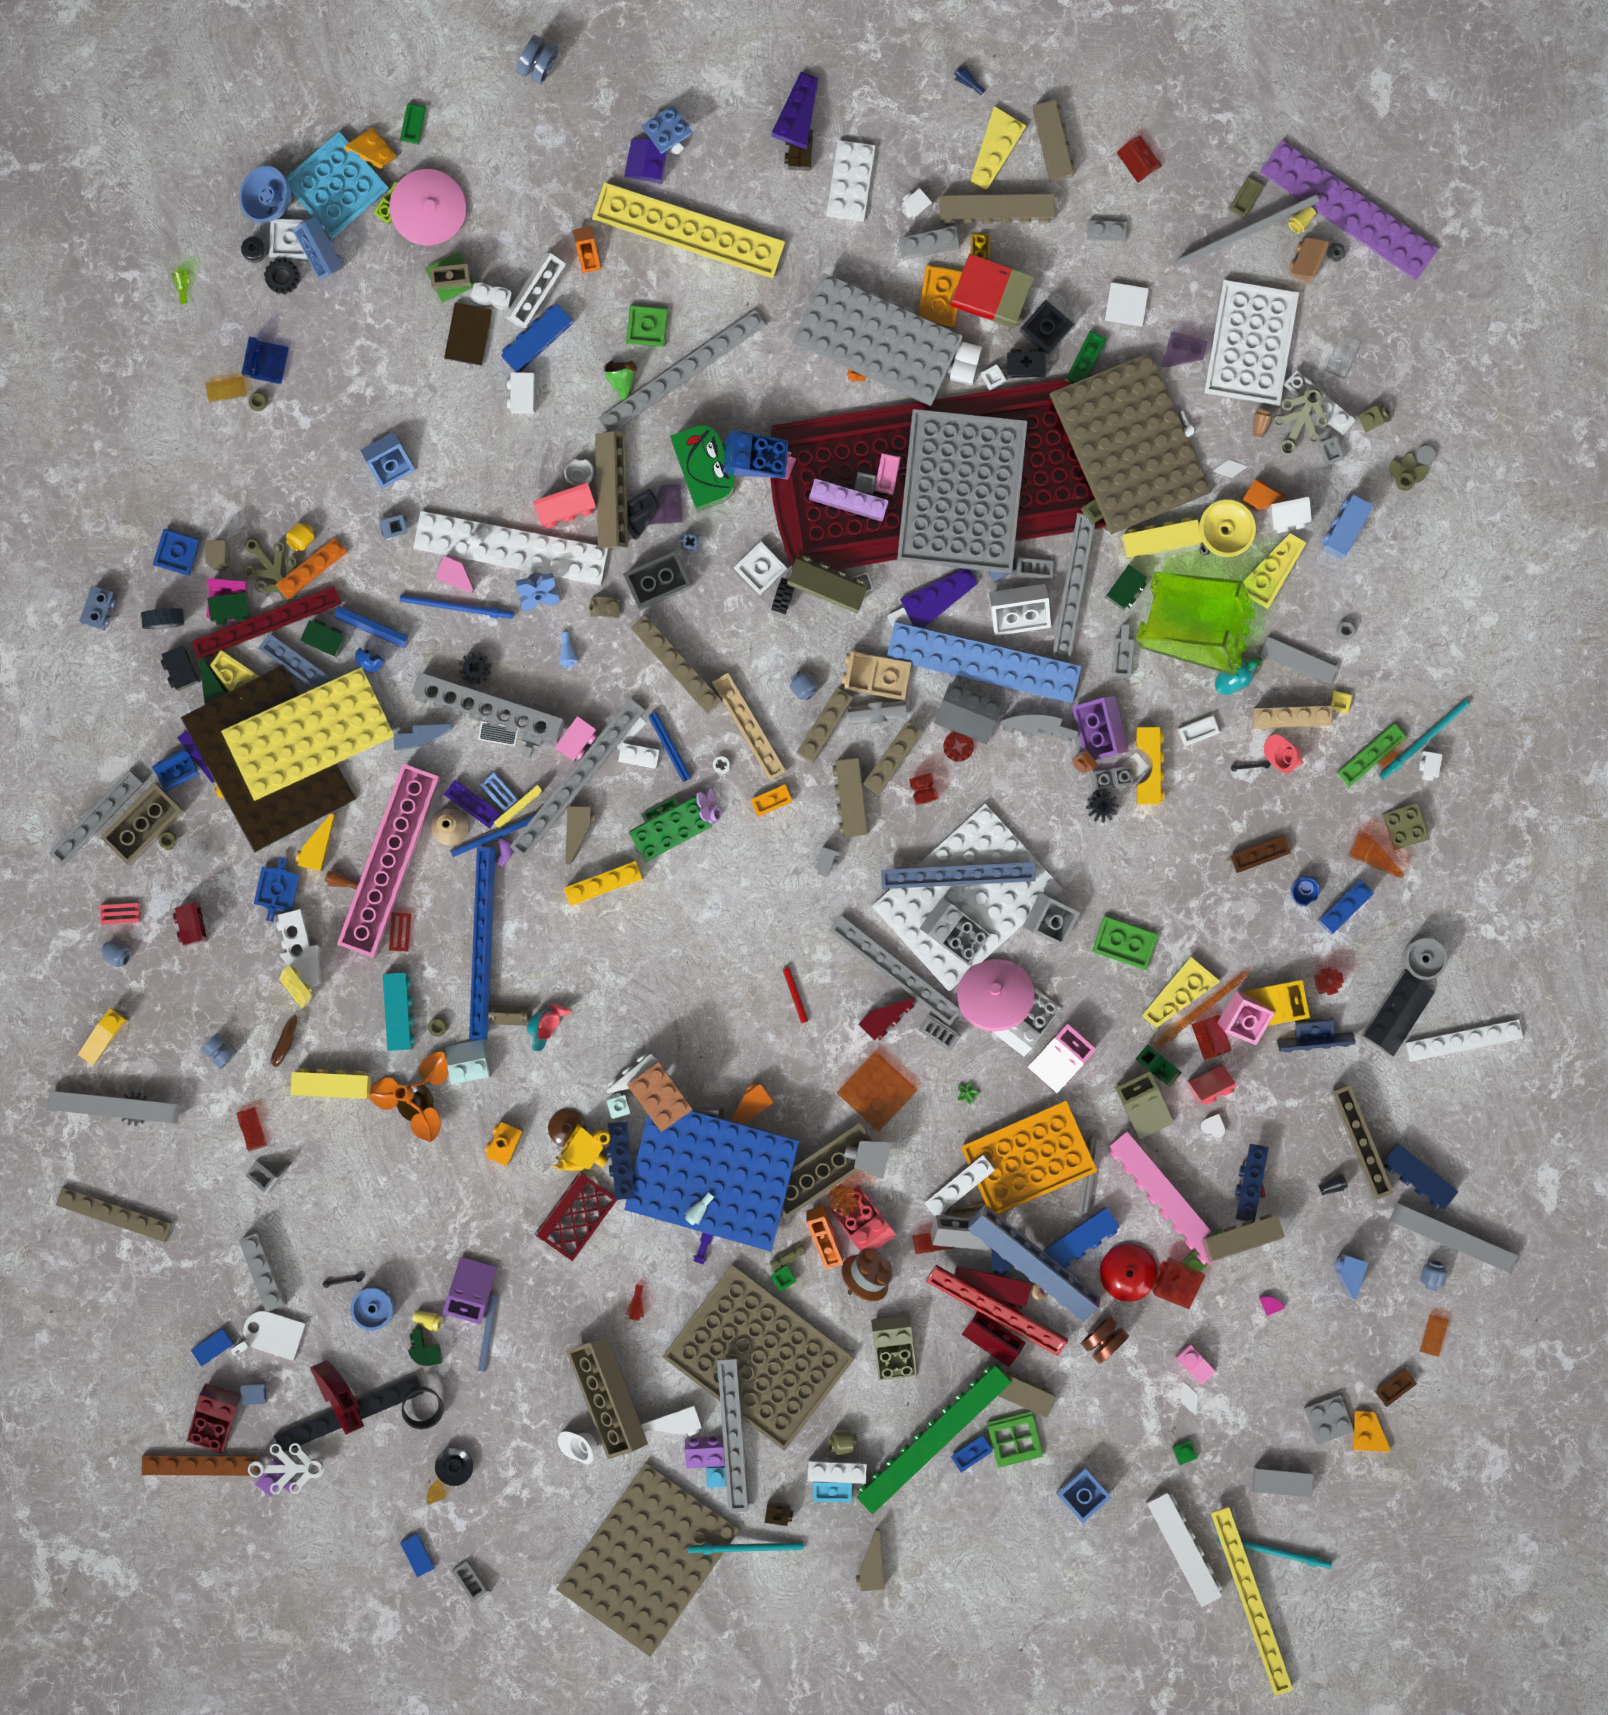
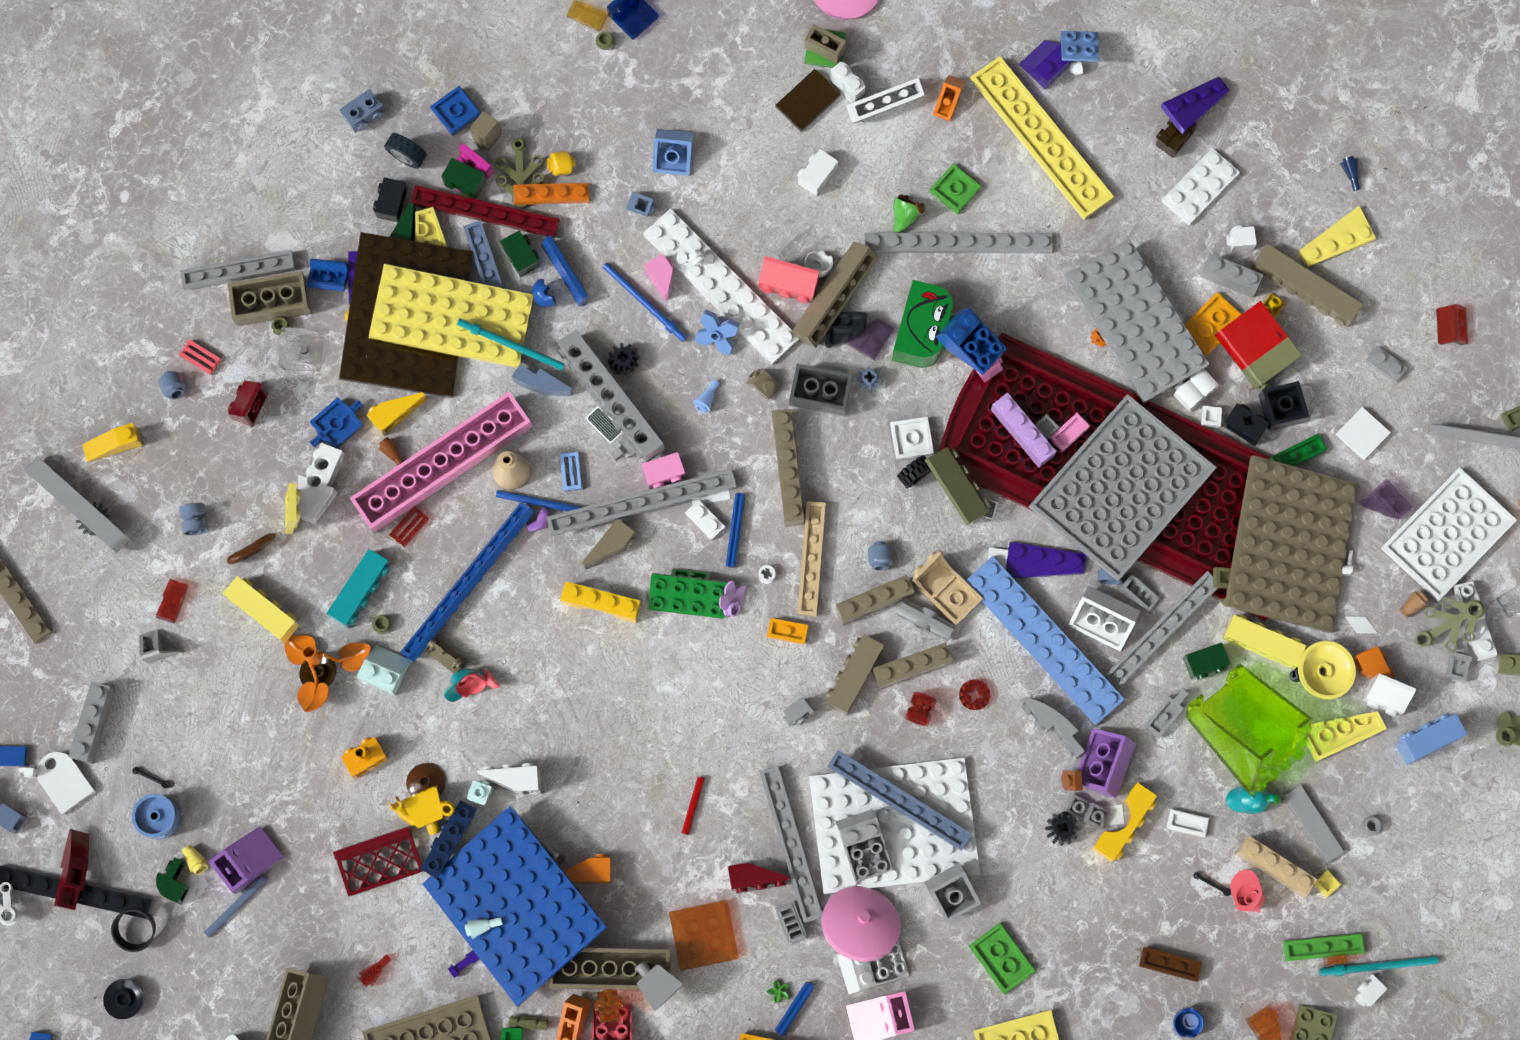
camera: 35 degrees right, 10 degrees down
(338, 731) = (477, 329): none -> teal bar
(435, 1492) = (92, 1011): clear yellow tile -> none
(472, 804) = (542, 465): dark purple plate -> none
(518, 807) = (577, 492): light yellow tile -> none
(537, 338) = (860, 138): blue brick -> none
(660, 1096) = (517, 805): nougat brick -> none
(968, 713) = (1001, 672): dark grey slope -> none
(989, 1097) = (794, 1008): none -> blue axle
(1052, 140) = (1389, 264): dark tan brick -> none

